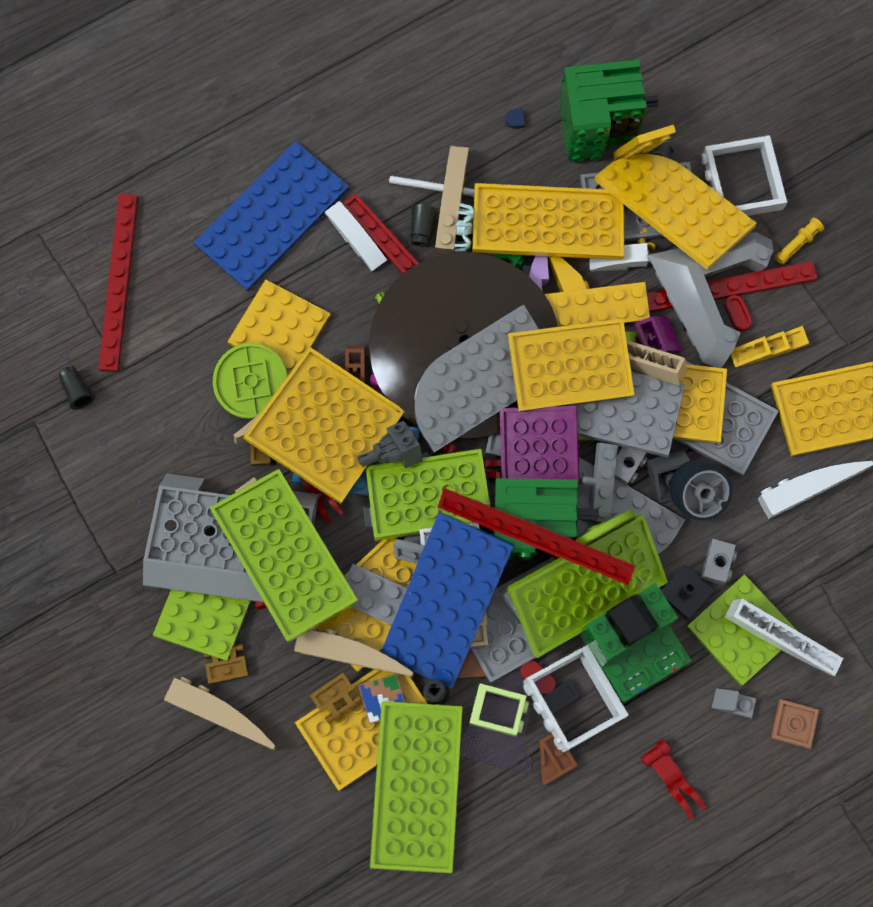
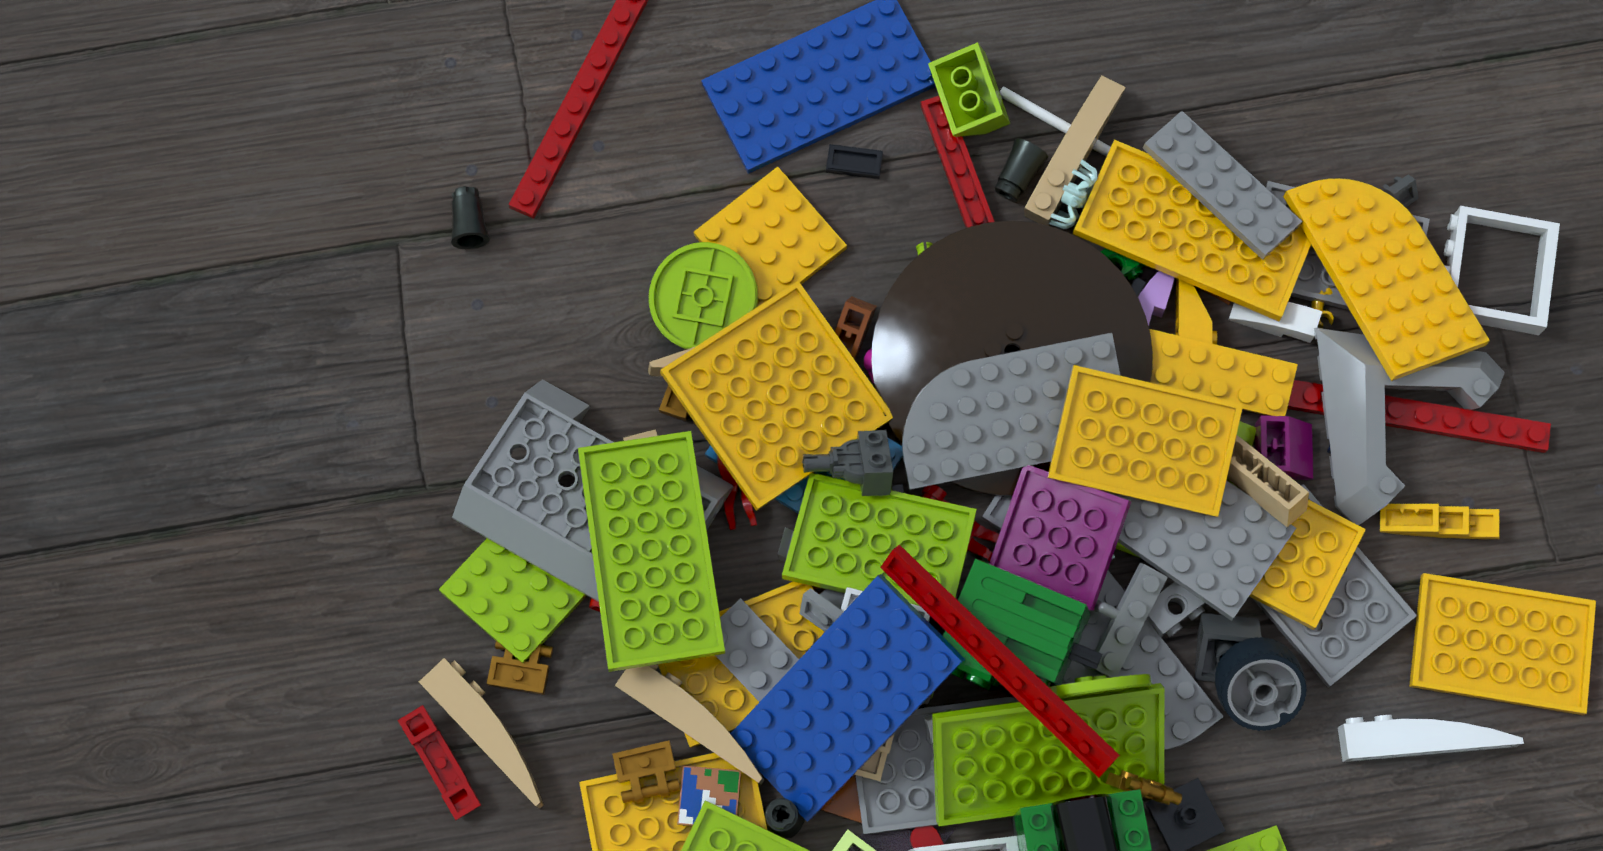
camera: 25 degrees right, 0 degrees up
(198, 746) = (440, 762): none -> red slope
(313, 258) = (854, 161): none -> black tile
(355, 236) = (922, 152): white slope -> none
(370, 187) = (969, 92): none -> lime slope
(515, 118) = (1207, 70): dark blue tile -> none
(553, 187) = (1222, 185): none -> light grey plate
(601, 107) = (1333, 99): green piece -> none
(644, 143) = (1372, 170): yellow plate -> none
(661, 581) = (1149, 788): none -> pearl gold plate
(718, 550) = (1232, 805): light grey brick -> none
(738, 313) = (1414, 456): red tile -> none
(804, 236) = (1554, 383): yellow pin -> none

